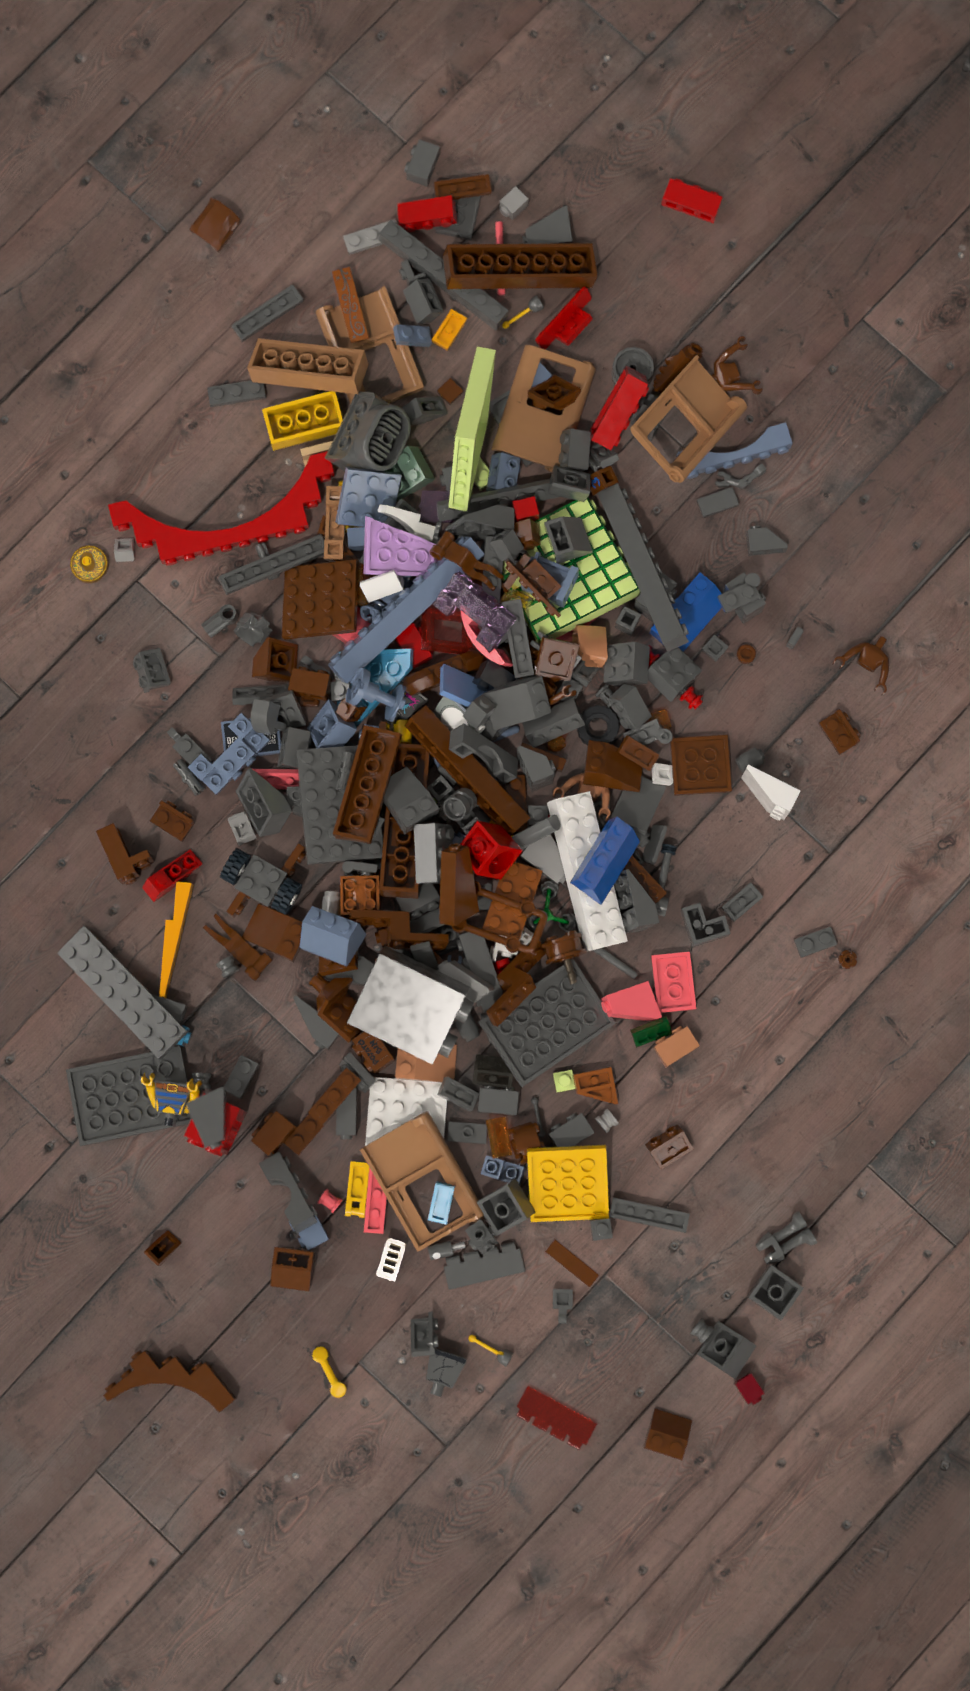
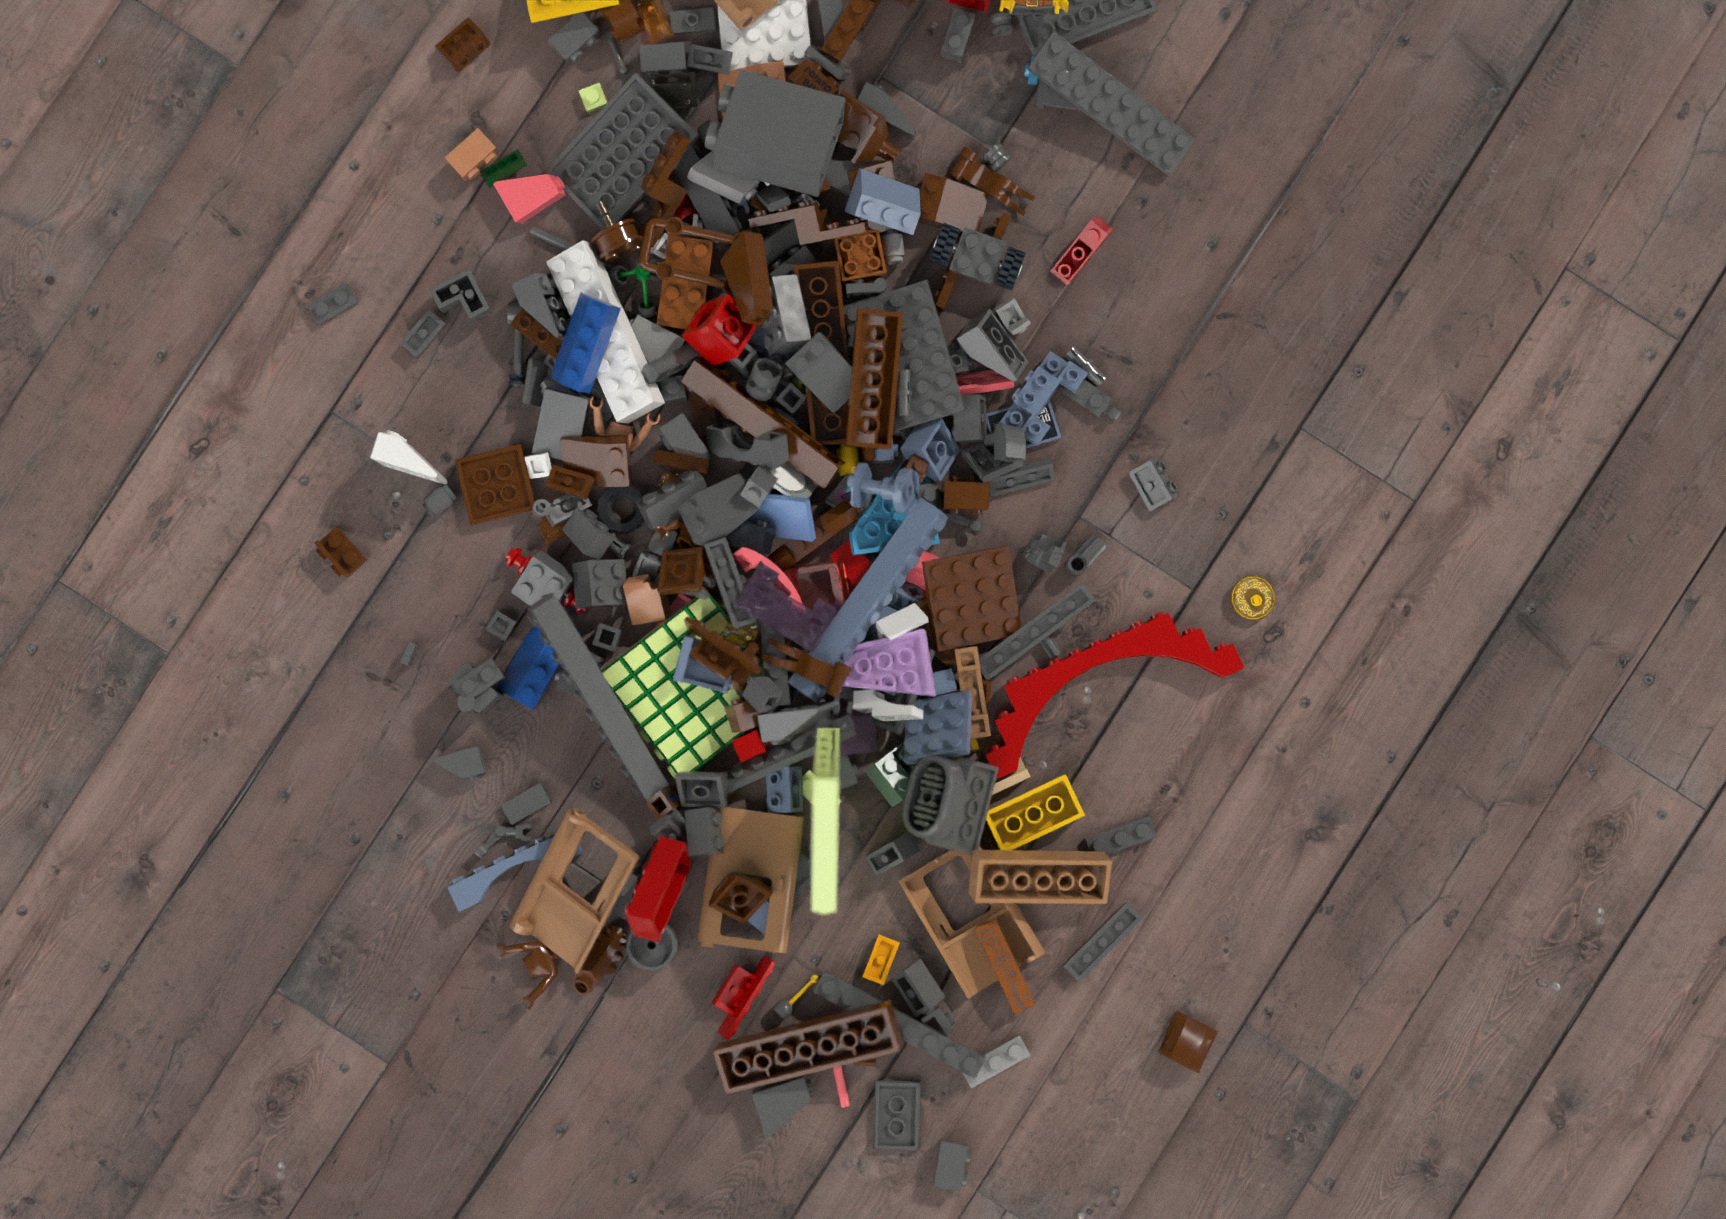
camera: 170 degrees right, 5 degrees up
(122, 863) = (1145, 257): reddish brown brick -> none
(124, 549) = (1215, 623): light grey slope -> none
(172, 821) = (1094, 313): reddish brown bracket -> none
(173, 934) = (1066, 183): light orange slope -> none
(275, 660) = (1011, 518): reddish brown slope -> none
(412, 335) = (923, 942): sand blue plate -> none
(427, 213) = (933, 1098): red brick -> none
(450, 391) = (866, 884): reddish brown tile -> none
(463, 187) = (896, 1139): reddish brown plate -> none
(513, 203) = (832, 1132): light grey brick -> none
(567, 538) = (692, 718): dark grey slope -> none
(596, 1084) = (555, 98): dark orange wing -> none
(606, 1120) = (537, 60): light grey wheel -> none
(673, 982) = (487, 229): coral plate -> none
(692, 200) = (615, 1175): red brick -> none
(746, 654) = (464, 626): reddish brown tile -> none
(847, 964) = (297, 294): reddish brown plate -> none
(870, 659) = (317, 646): reddish brown piece -> none

